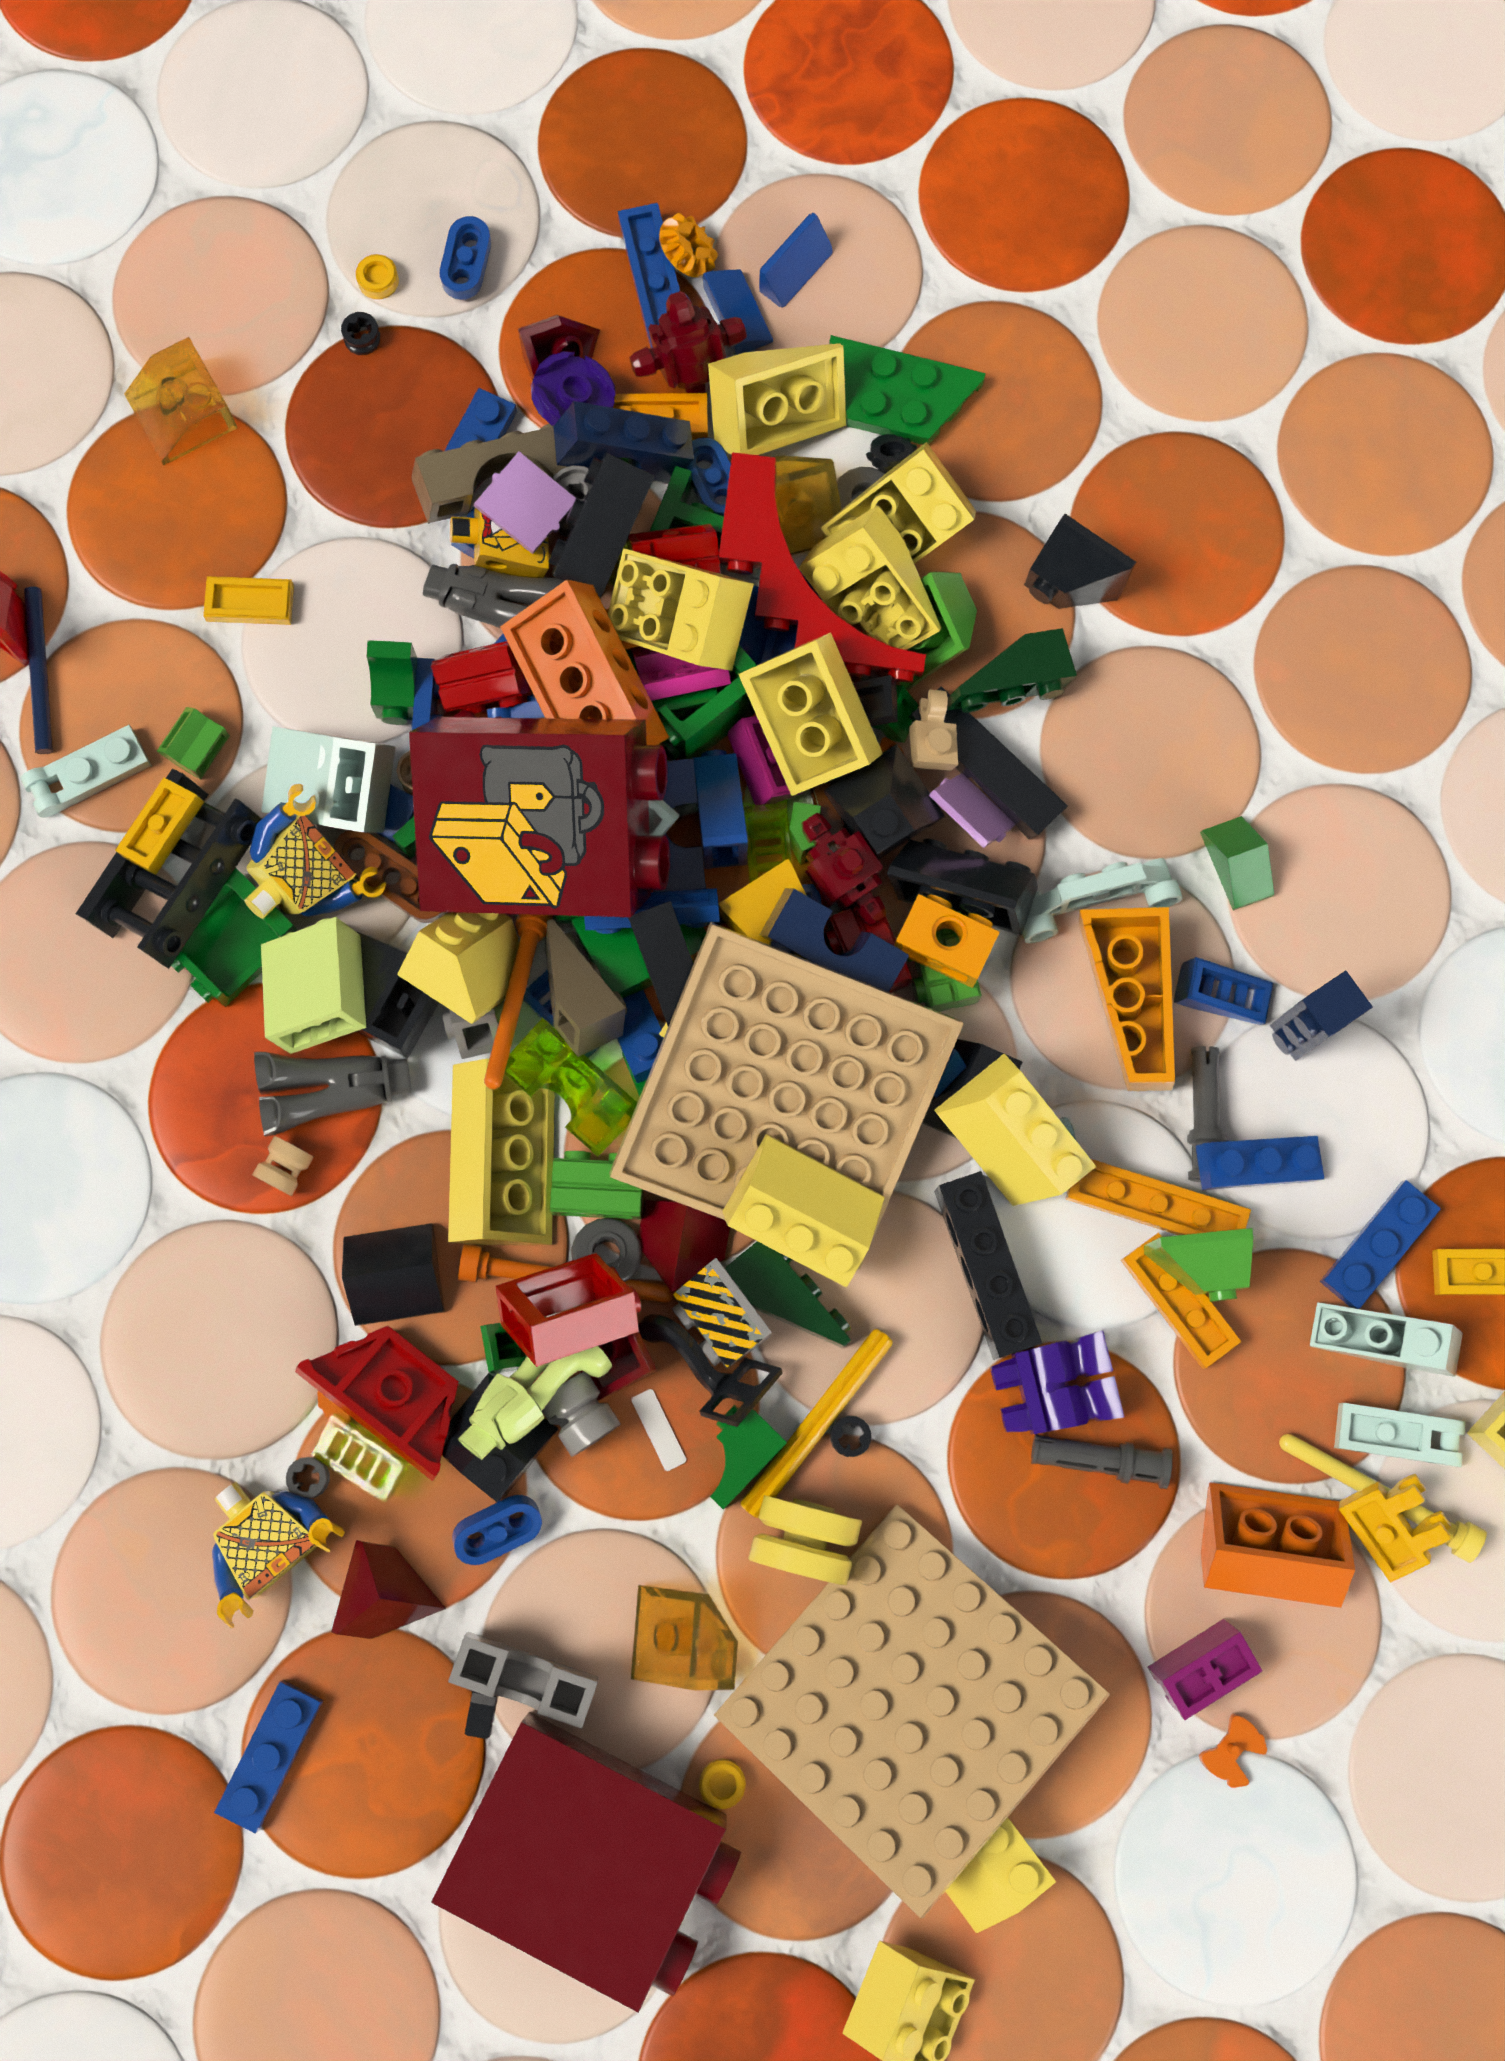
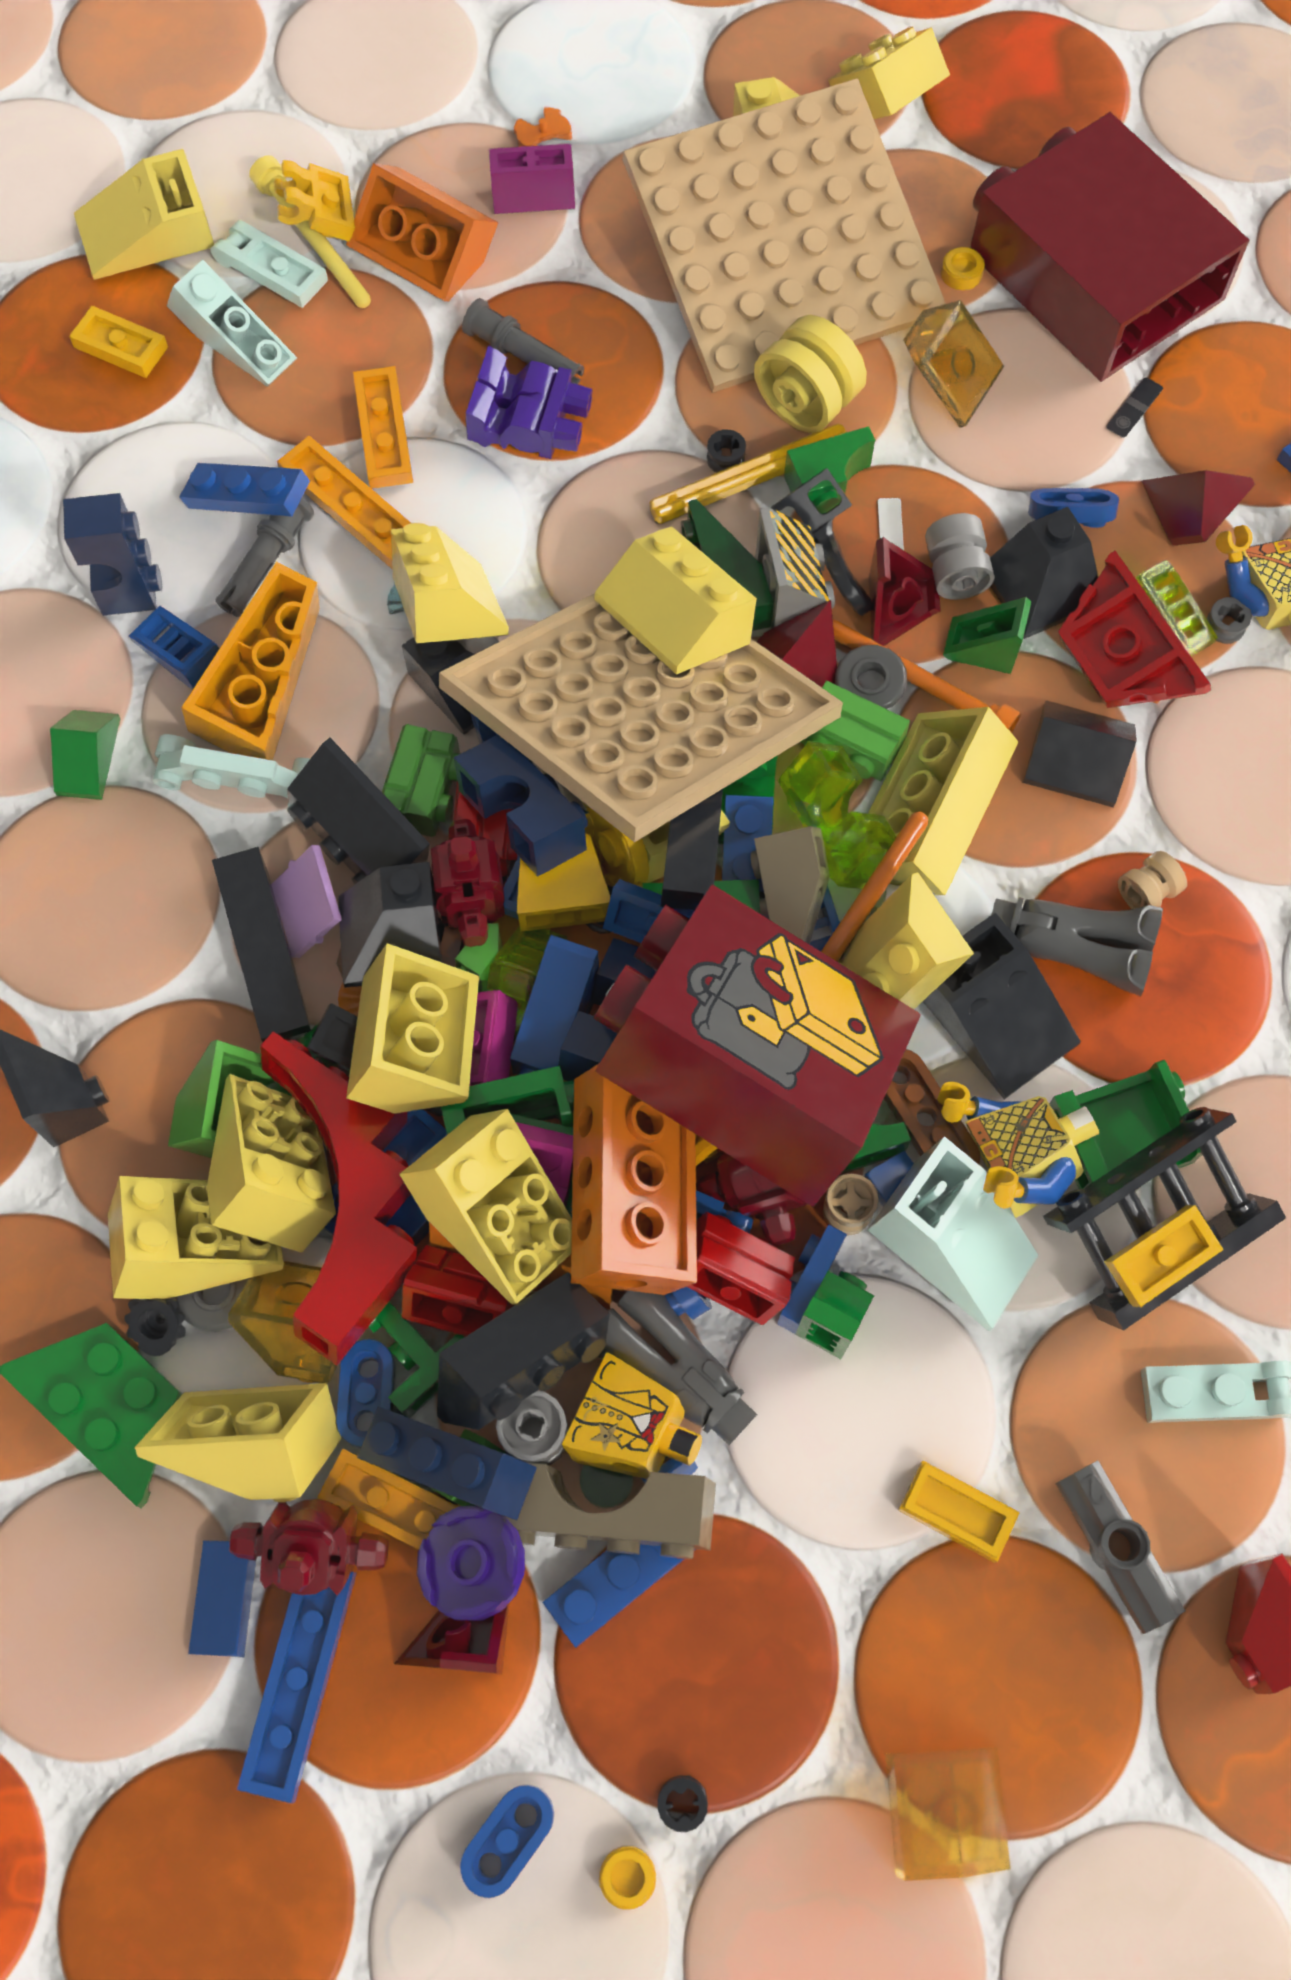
camera: 150 degrees left, 10 degrees down
(38, 670) = (1235, 1545): dark blue bar -> none
(105, 608) = (1137, 1579): none -> dark grey piece
(193, 742) = (1087, 1366): bright green piece -> none
(313, 985) = (1058, 1021): yellowish green brick -> none
(515, 1405) = (1029, 565): yellowish green piece -> none
(525, 502) = (596, 1431): lavender piece -> none
(525, 1678) = (1072, 370): light grey arch -> none
(531, 1298) = (900, 648): window -> none
(679, 250) = (248, 1698): light orange gear -> none
(795, 261) = (120, 1625): blue slope -> none
(931, 740) = (300, 977): tan plate -> none
(957, 962) = (401, 746): light orange brick -> none
(987, 1265) = (532, 517): black brick -> none
(1029, 667) = (172, 1015): dark green slope -> none
(1207, 1261) = (341, 424): bright green slope -> none
(1380, 1245) = (185, 400): blue plate -> none

